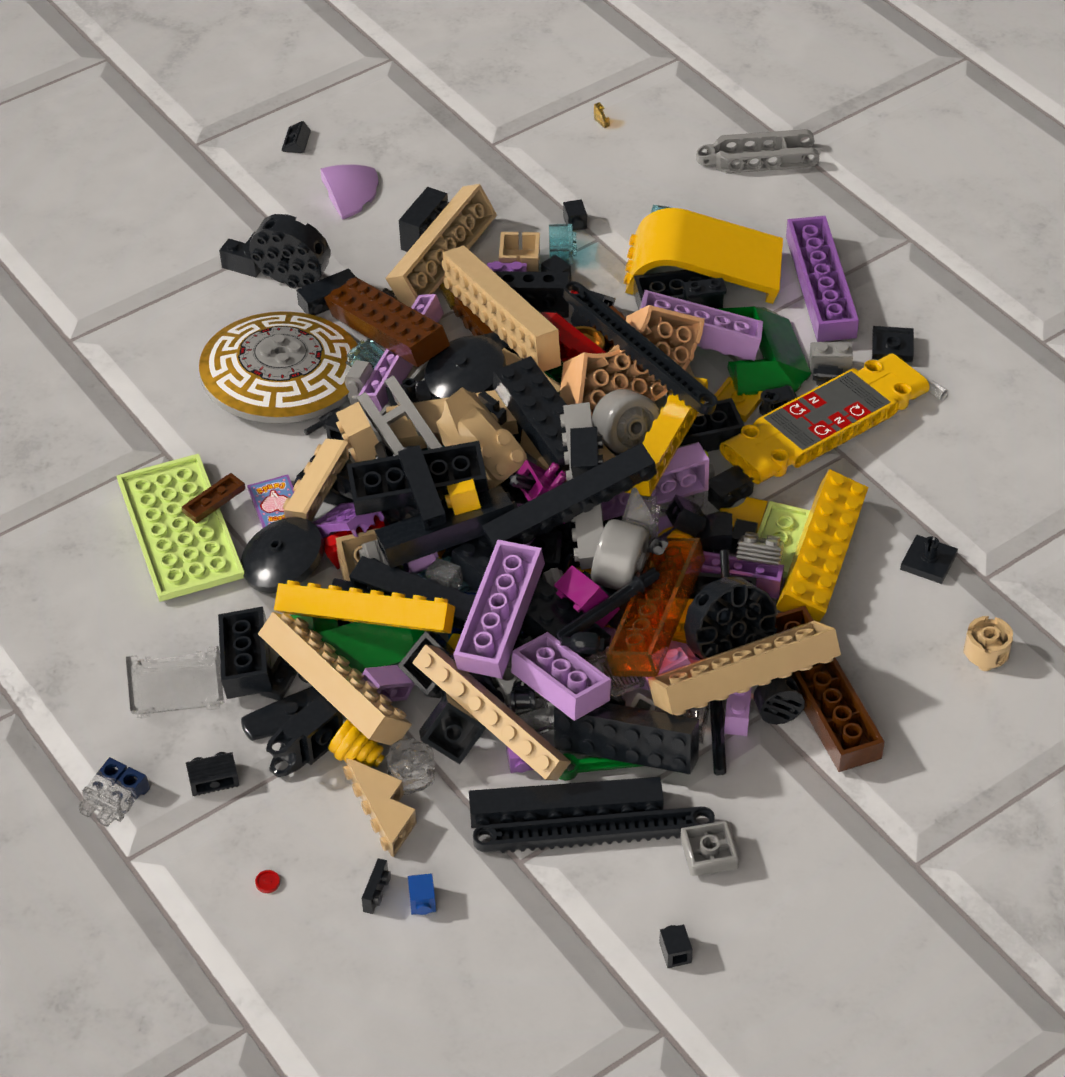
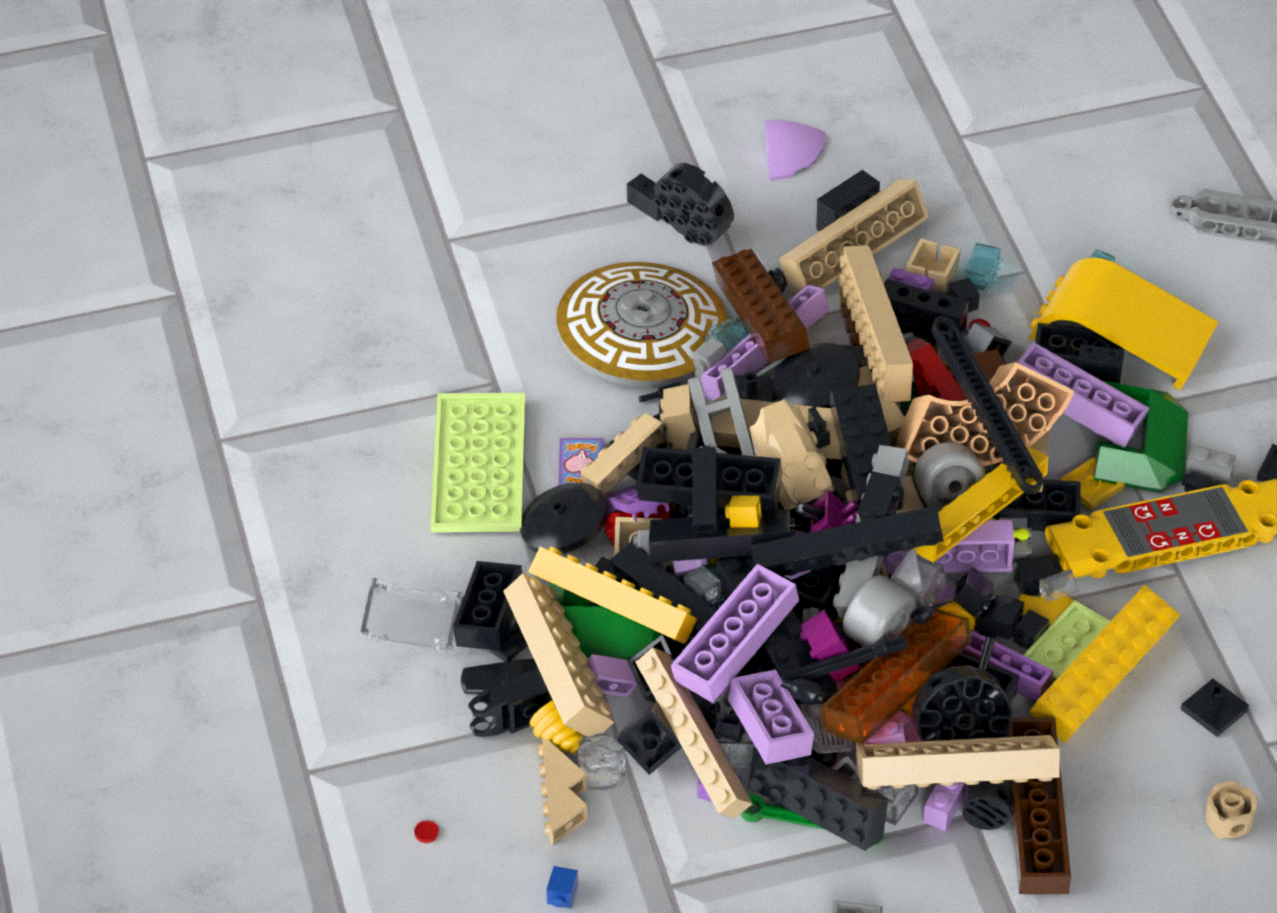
camera: 20 degrees right, 0 degrees up
(112, 792) = (316, 704): clear hips -> none
(212, 773) = (414, 714): black brick -> none
(213, 498) = (519, 442): reddish brown plate -> none
(296, 138) = (758, 78): black slope -> none
(312, 296) = (701, 256): black brick -> none
(373, 892) = (522, 866): black plate -> none
(564, 800) = (736, 842): black brick -> none
(575, 214) = (1011, 238): black brick -> none
(588, 829) = (747, 875): black gear -> none
(599, 115) = (1087, 133): clear yellow tile -> none
(718, 739) = (913, 824): black axle -> none
(752, 491) = (1058, 585): none -> clear brick
(760, 549) = (1035, 647): light grey brick -> none
(776, 398) = (1132, 493): black piece -> none
(822, 279) = (1240, 377): medium lavender brick -> none

